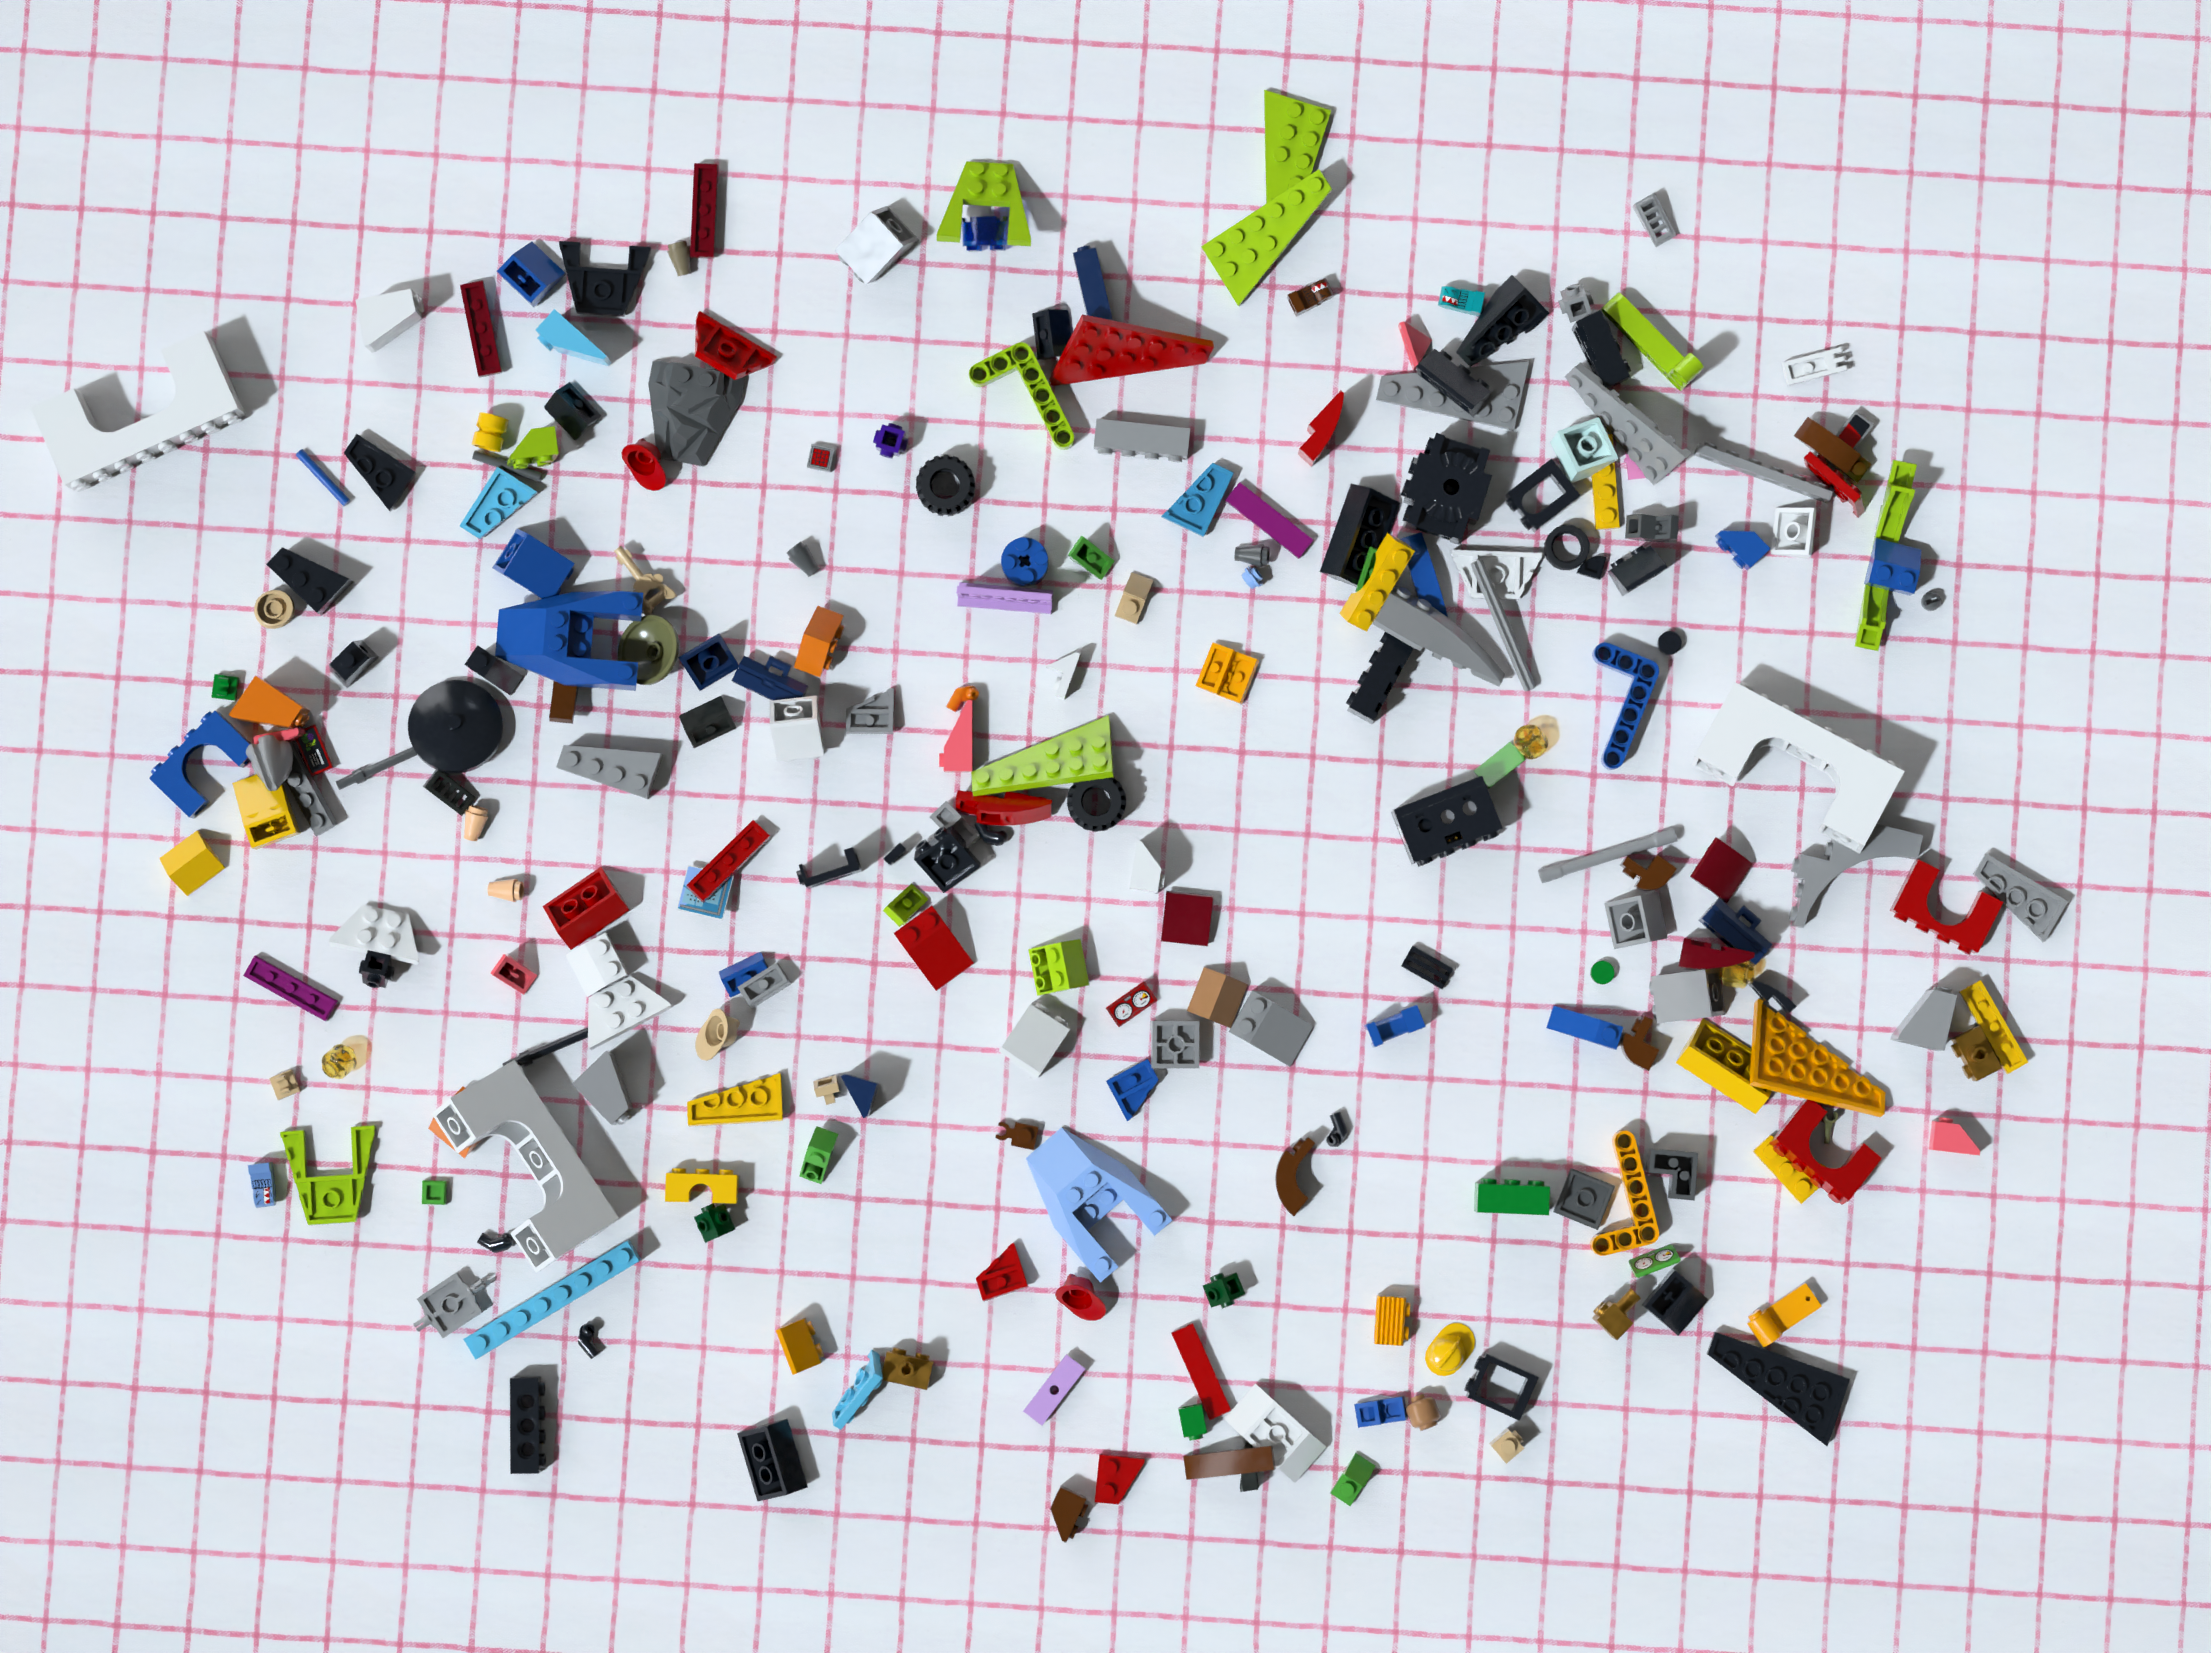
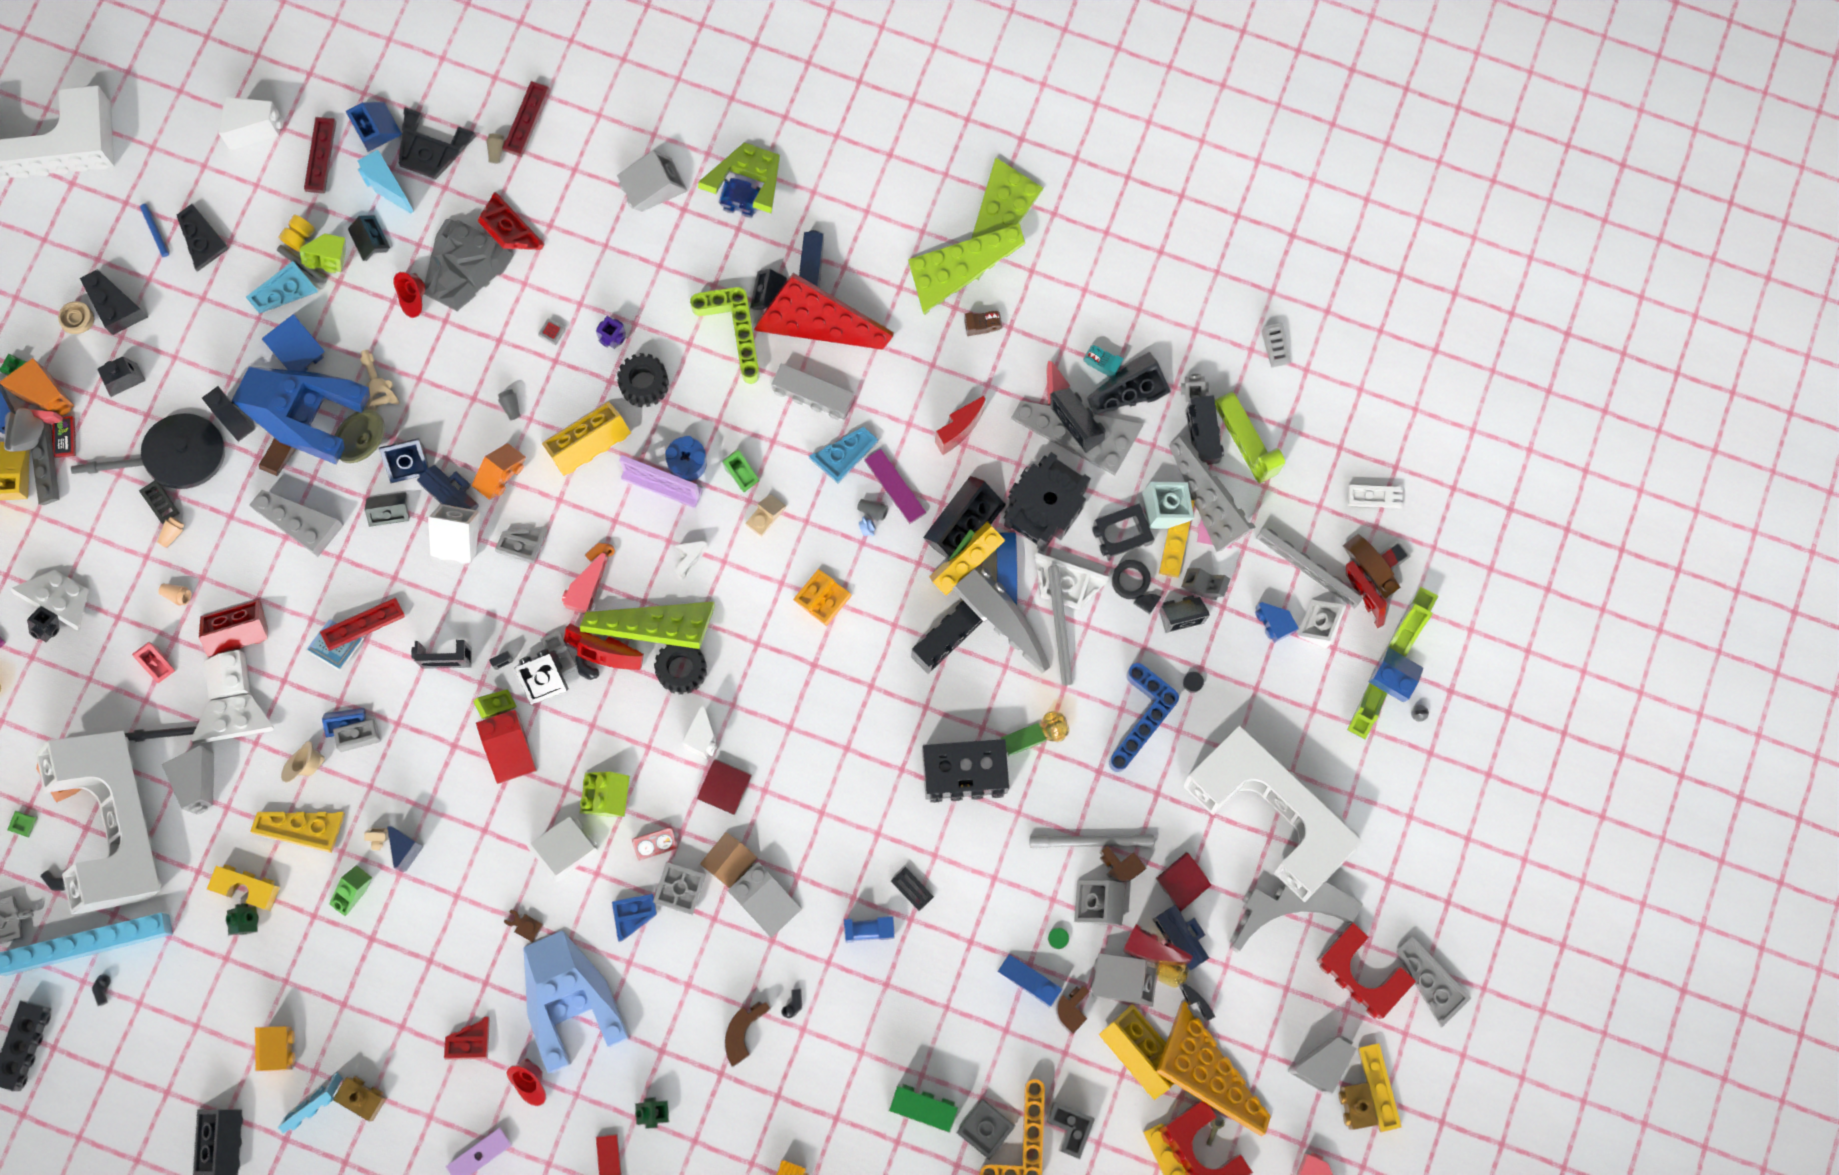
camera: 10 degrees right, 10 degrees down
(903, 572) = (586, 438): none -> yellow slope

